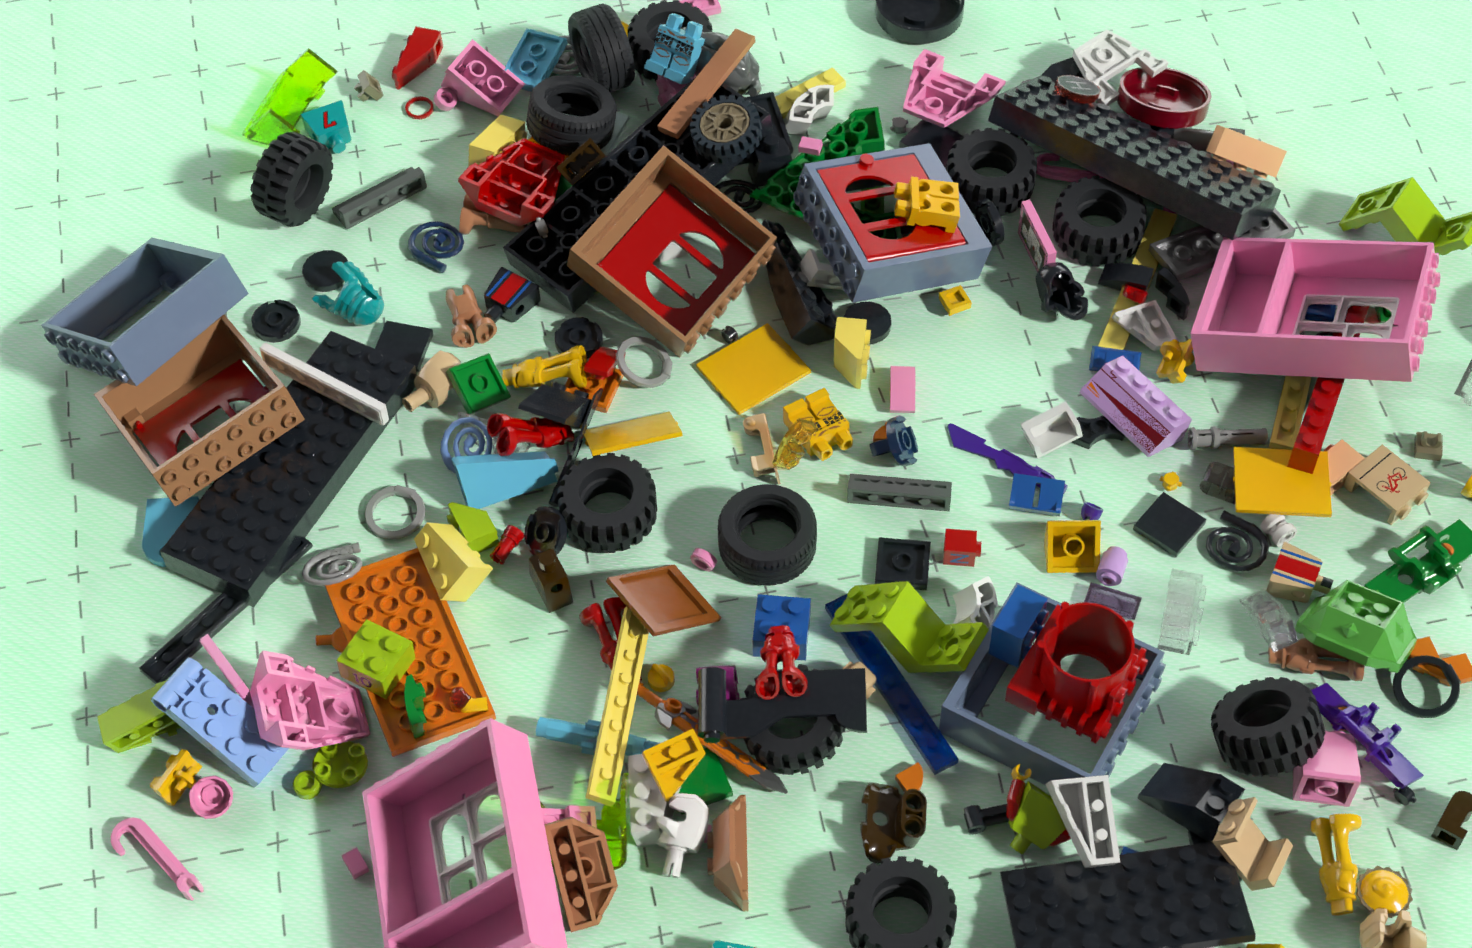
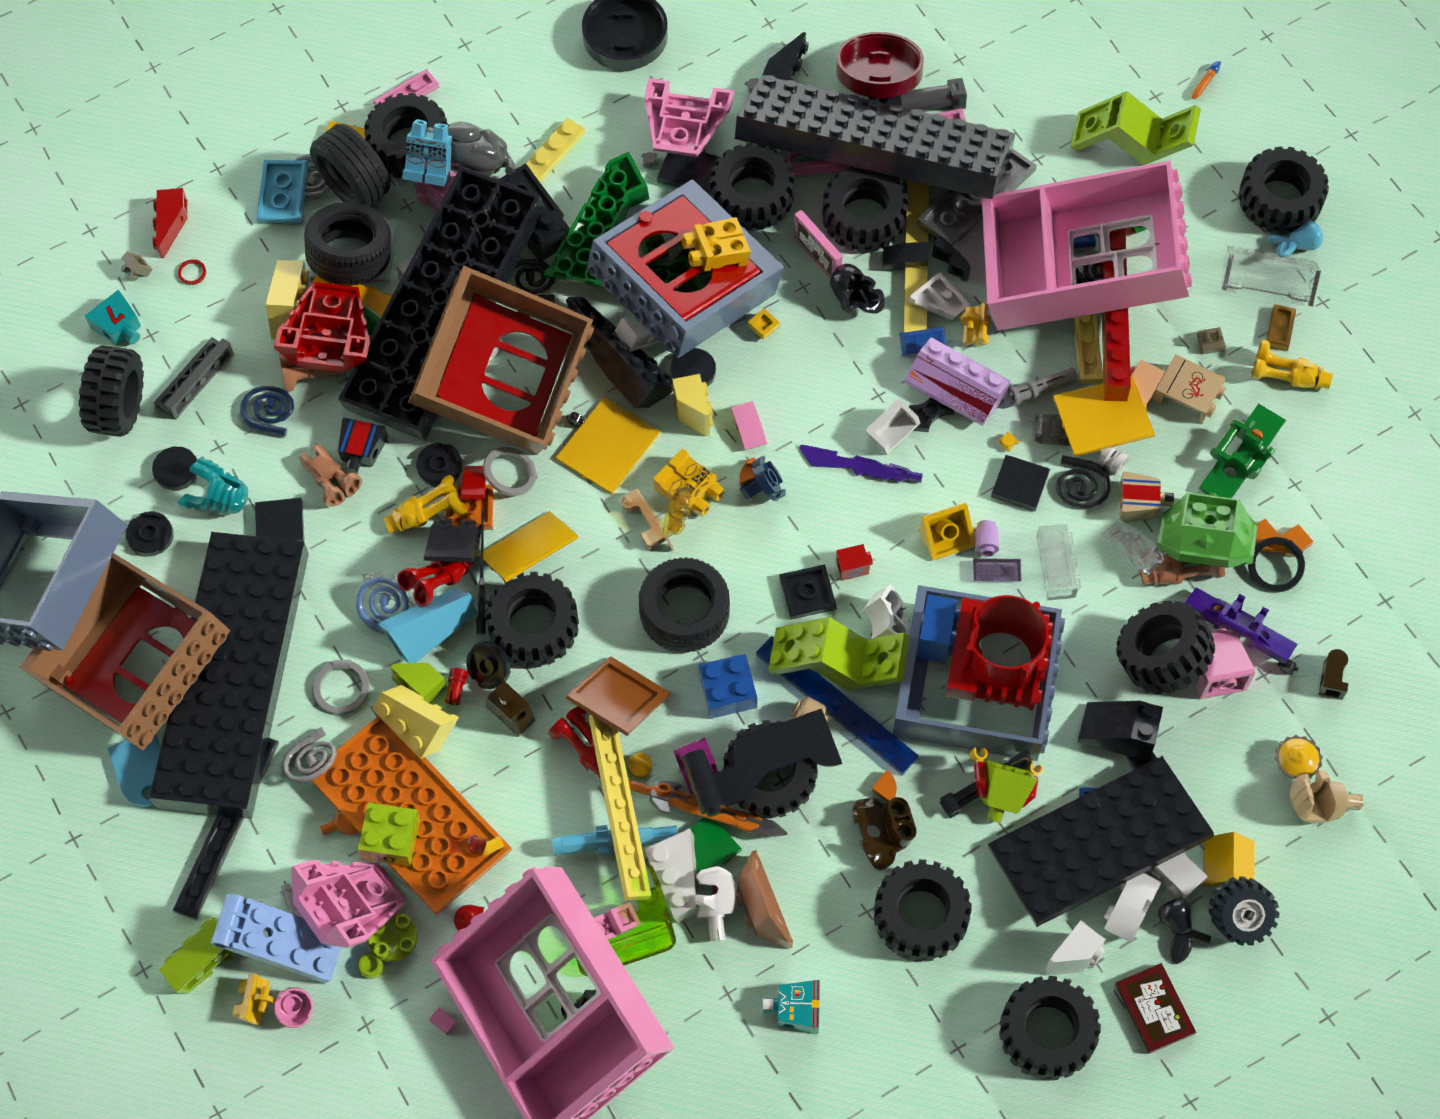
camera: 20 degrees left, 10 degrees up
(159, 852) = (265, 1070): bright pink piece -> none
(227, 669) = (263, 890): bright pink tile -> none
(289, 98) = (61, 306): clear neon green windscreen -> none
(324, 384) = (232, 589): white tile -> none
(414, 704) = (438, 861): green slope -> none
(432, 382) = (329, 549): tan piece -> none
(478, 384) = (369, 541): green tile -> none
(479, 81) = (242, 231): bright pink piece -> none
(541, 227) = (369, 370): light grey piece -> none
(581, 161) = (380, 291): dark brown torso -> none
(581, 870) = (647, 963): nougat wedge -> none
(674, 761) = (688, 844): yellow wing -> none
(703, 559) = (636, 644): bright pink tile -> none
(706, 83) = (469, 181): nougat tile -> none
(726, 129) = (508, 239): wheel -> none
(777, 648) = (741, 711): red piece -> none
(809, 106) = (559, 173): white brick -> none
(810, 145) = (581, 210): bright pink piece -> none
(899, 492) = (781, 528): dark grey fence -> none
(990, 221) = (769, 238): black tile -> none
(1049, 498) = (912, 491): blue piece -> none
(1079, 88) = (803, 81): tile -> none
(1088, 817) = (1050, 778): white wedge -> none
(1091, 510) = (951, 491): dark purple hinge -> none
(1108, 56) = (817, 38): white wing -> none
(1135, 294) = (920, 272): red tile -> none
(1245, 152) = (971, 101): light nougat brick -> none
(1247, 848) = (1183, 759): tan panel -> none
(1337, 877) = (1257, 757): yellow piece -> none

